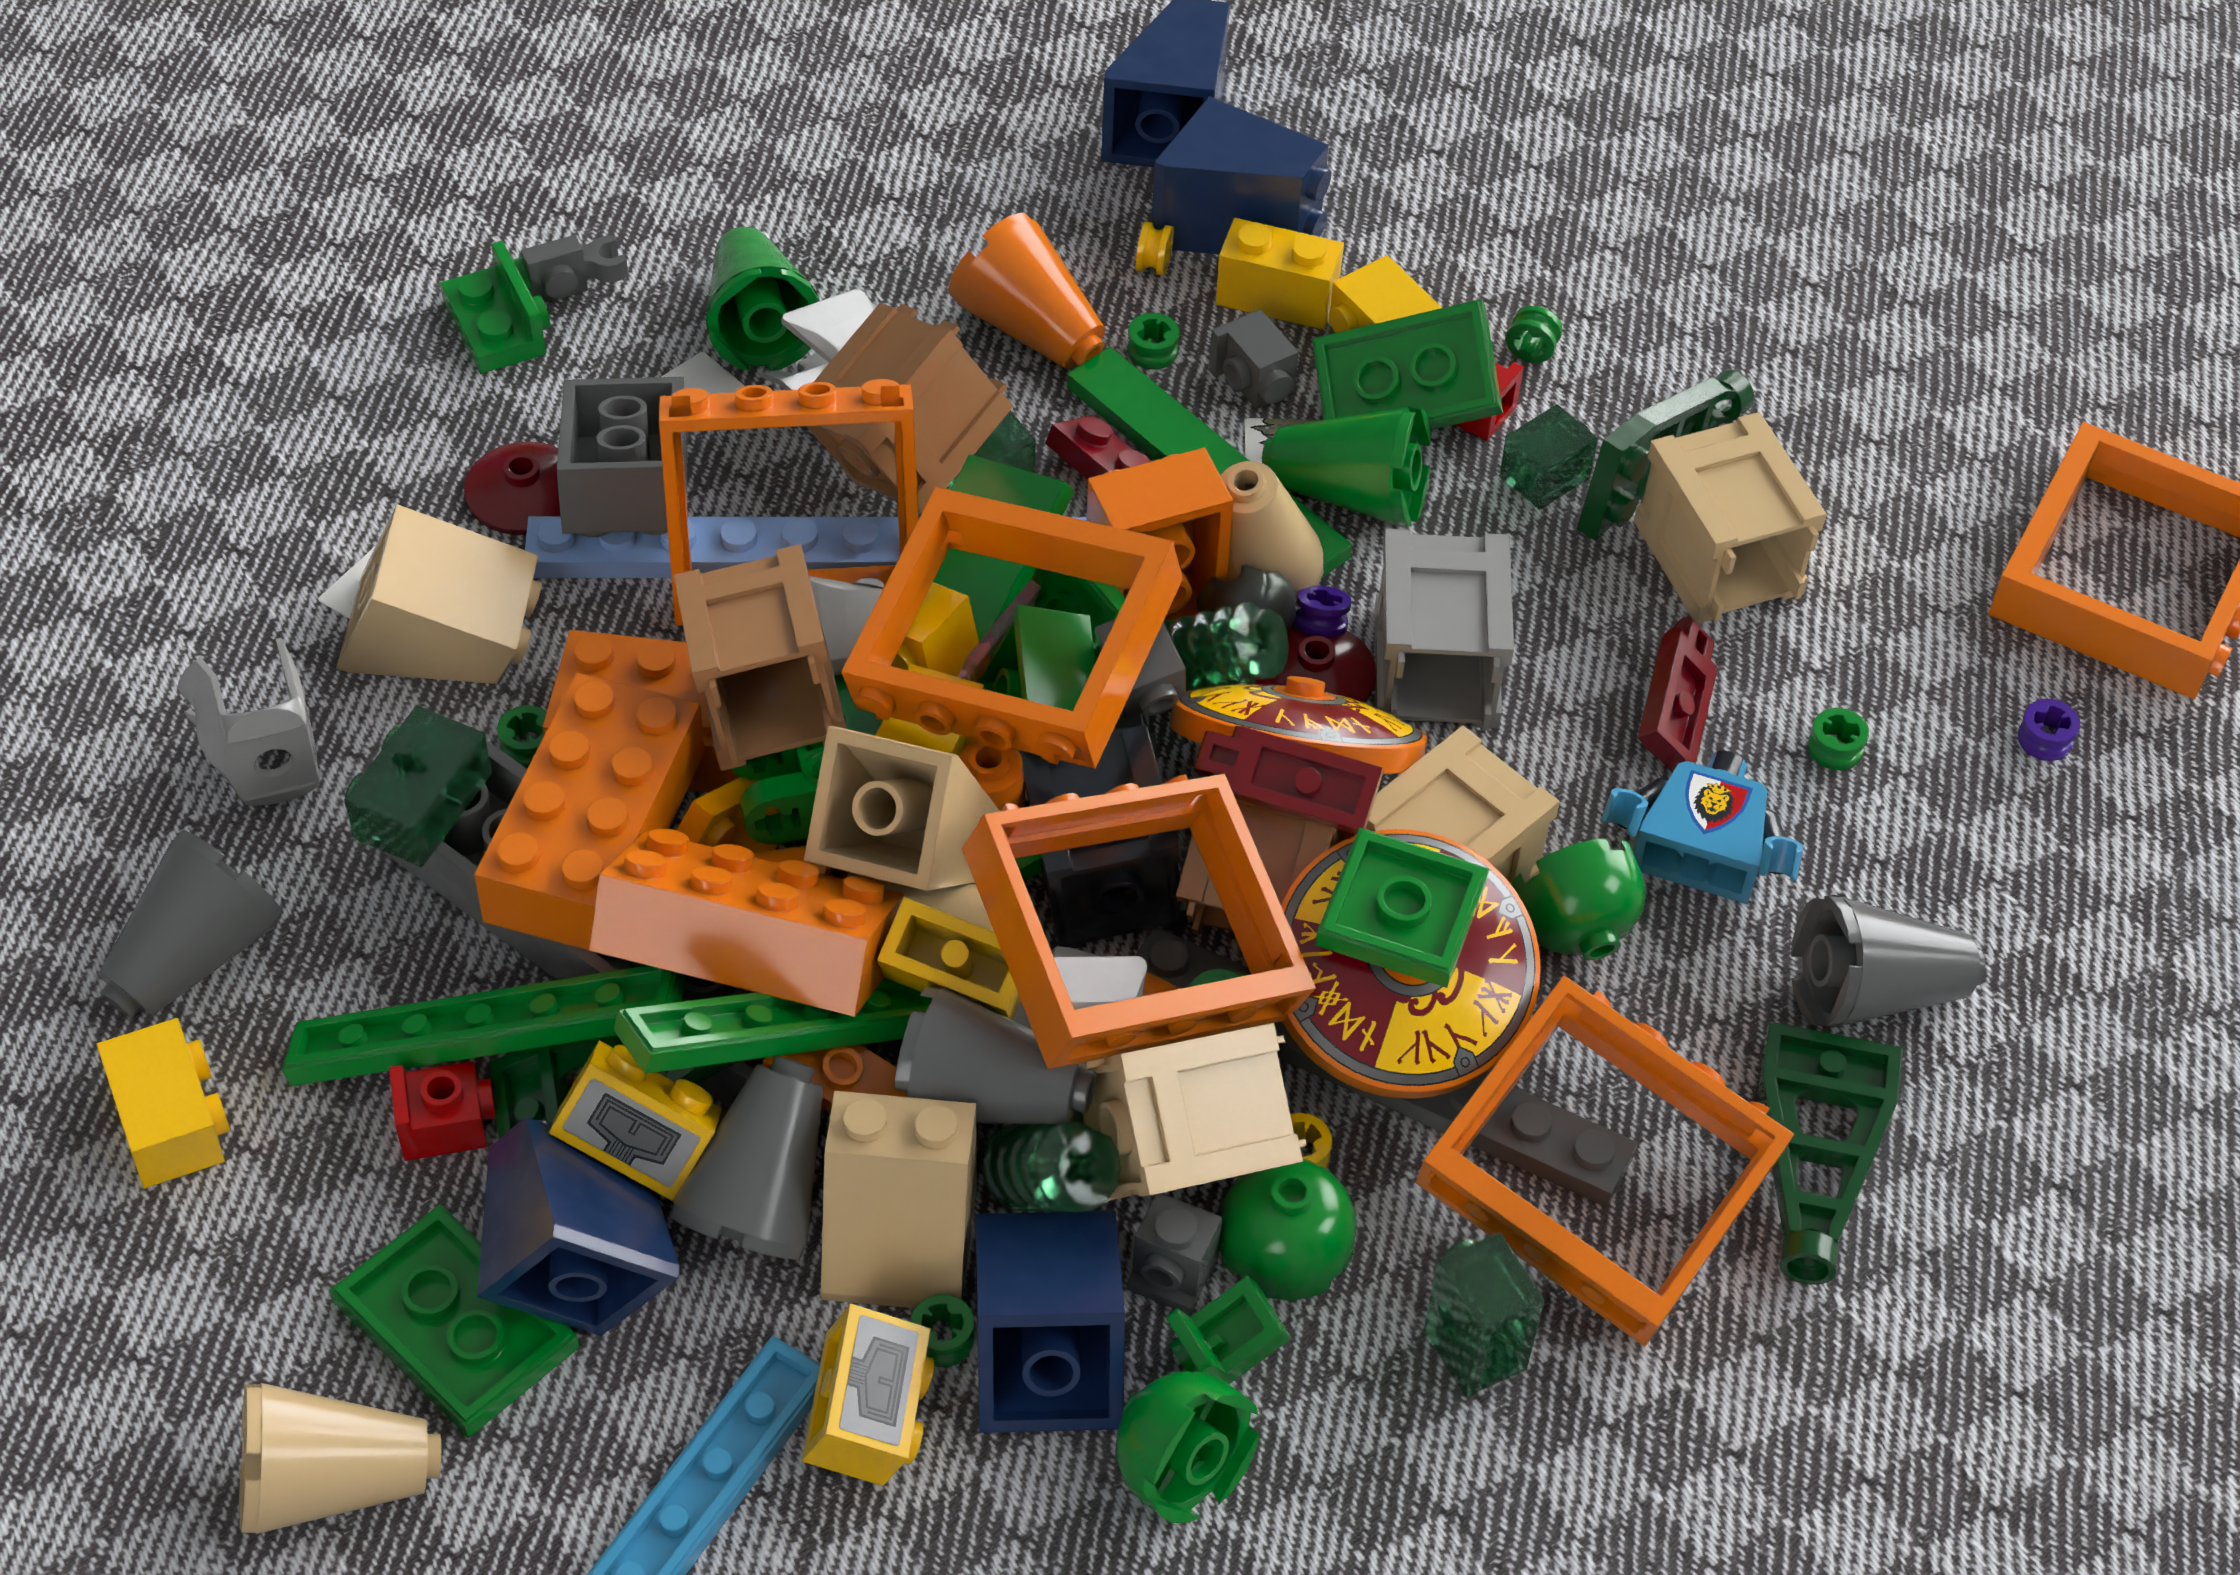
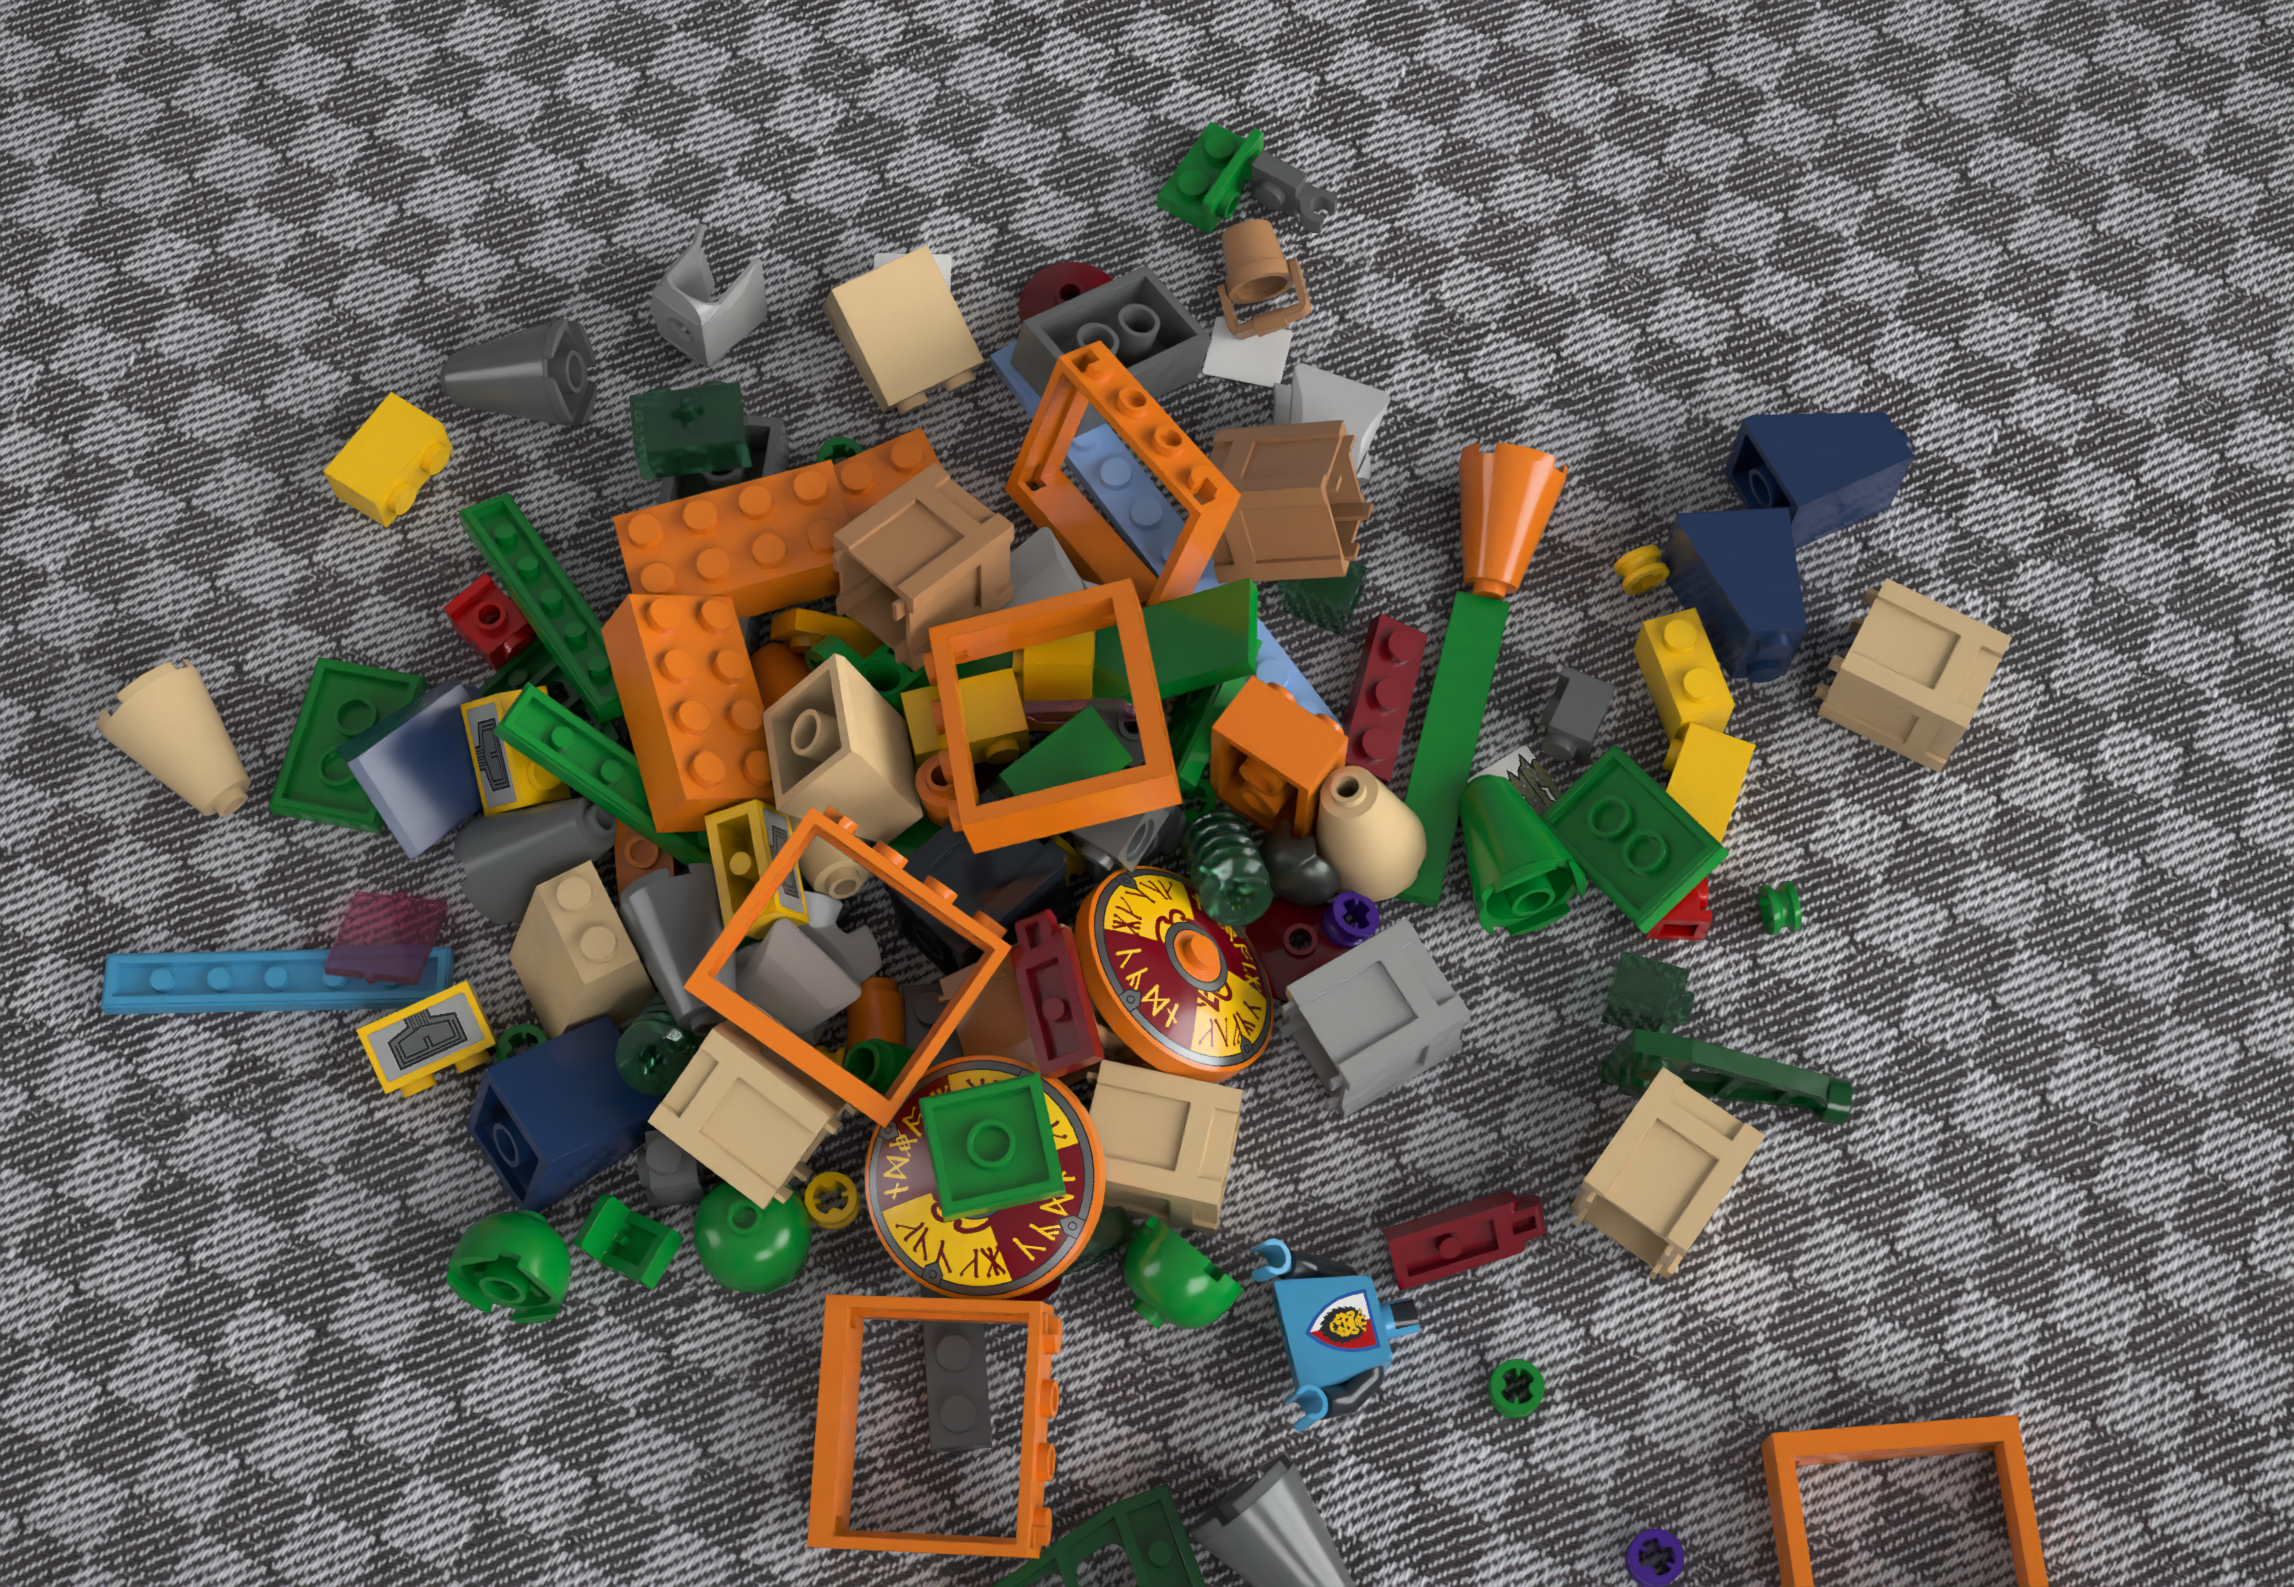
camera: 60 degrees right, 15 degrees up
(631, 324) = (1256, 274): none -> medium nougat piece
(716, 1386) = (386, 938): none -> clear pink piece
(747, 300) = (1350, 326): green cone -> none
(1156, 354) = (1537, 617): green bush -> none
(1405, 132) = (1912, 674): none -> tan container
(1482, 1313) = (737, 1410): clear green brick -> none

